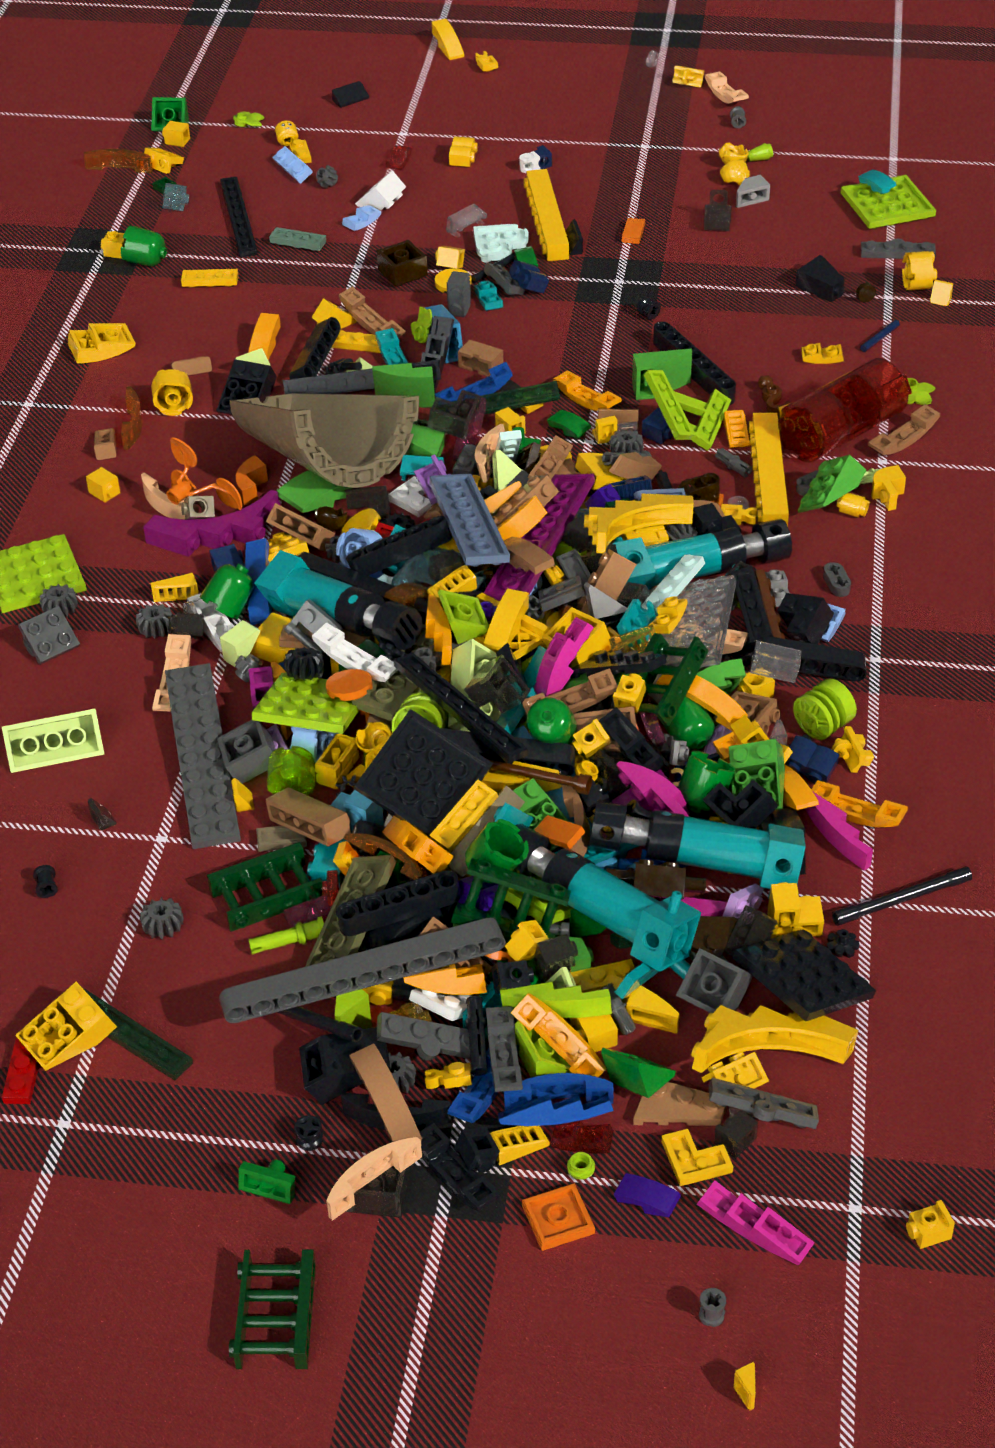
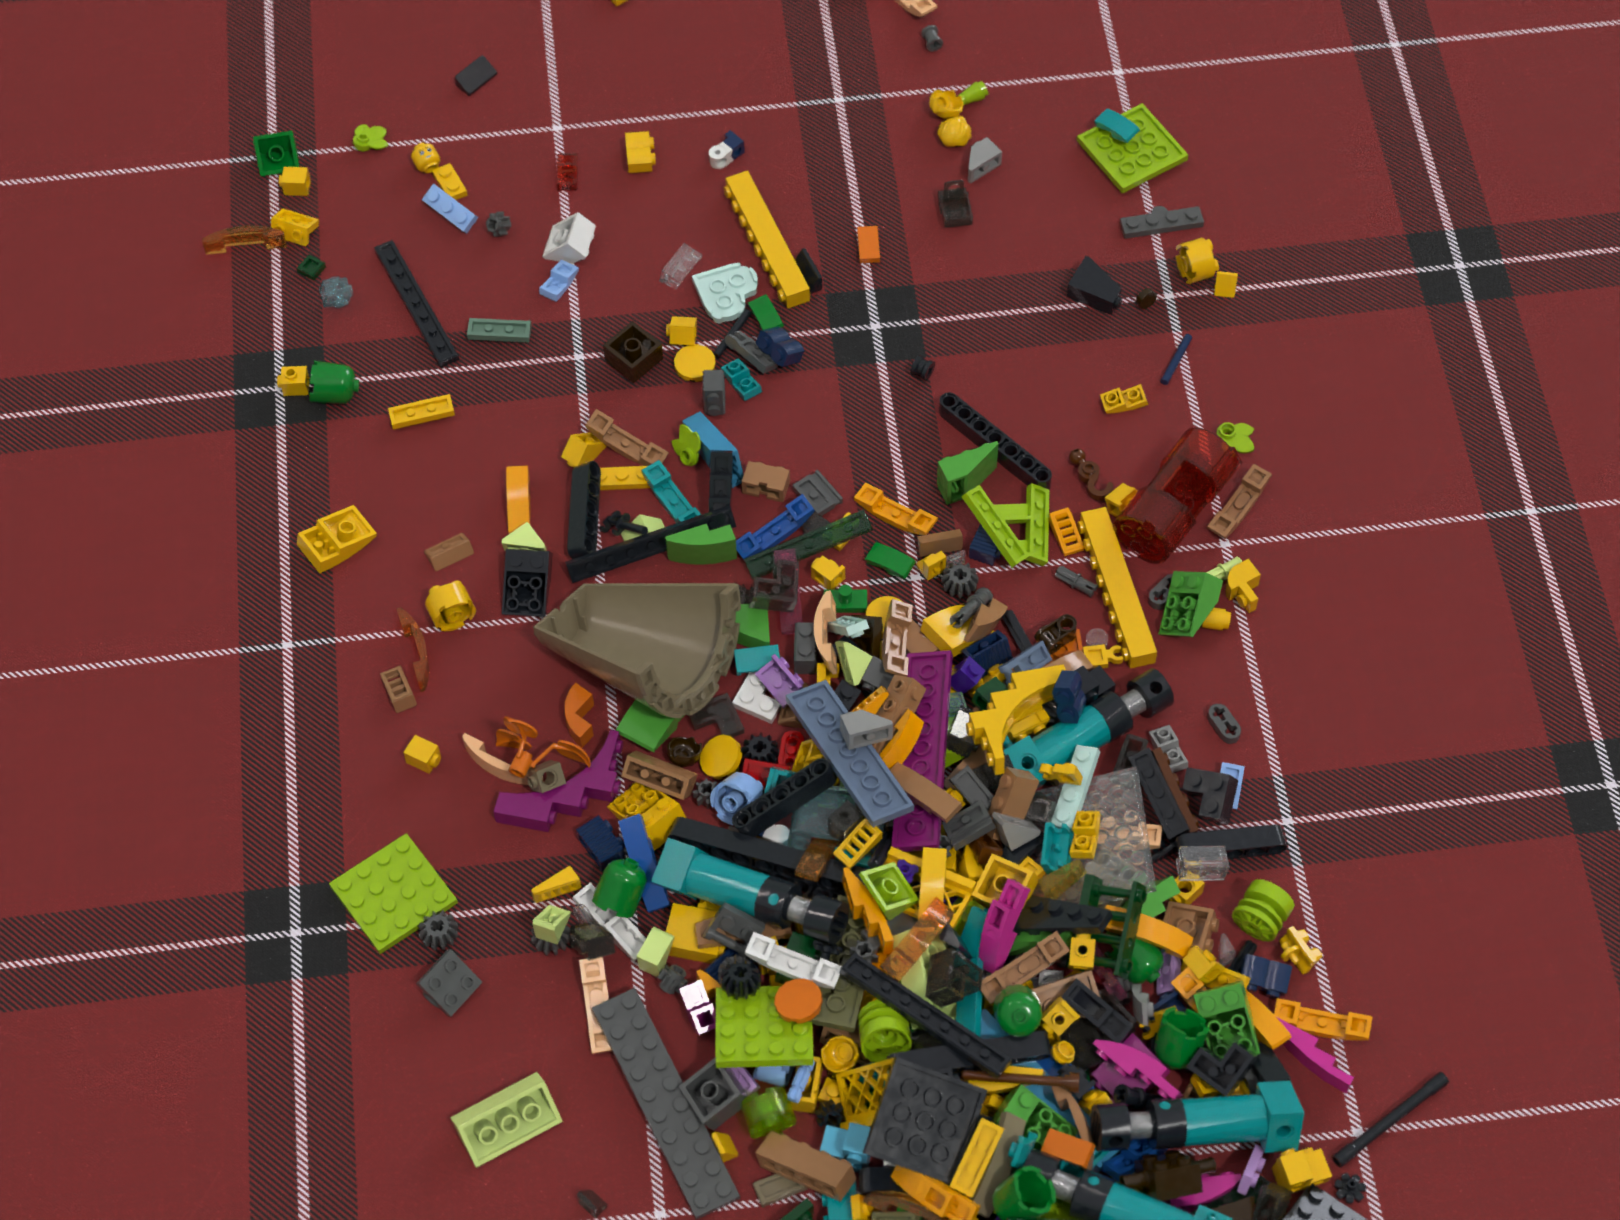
camera: 15 degrees left, 15 degrees up
(152, 604) = (551, 923): none -> yellowish green slope
(328, 748) = (799, 1083): none -> light blue axle
(471, 648) = (917, 939): none -> clear orange slope
(488, 500) = (864, 728): none -> light grey slope
(525, 372) = (818, 492): none -> dark grey plate
(663, 565) = (1064, 773): none -> yellow plate
(688, 516) = (1069, 697): none -> dark blue brick

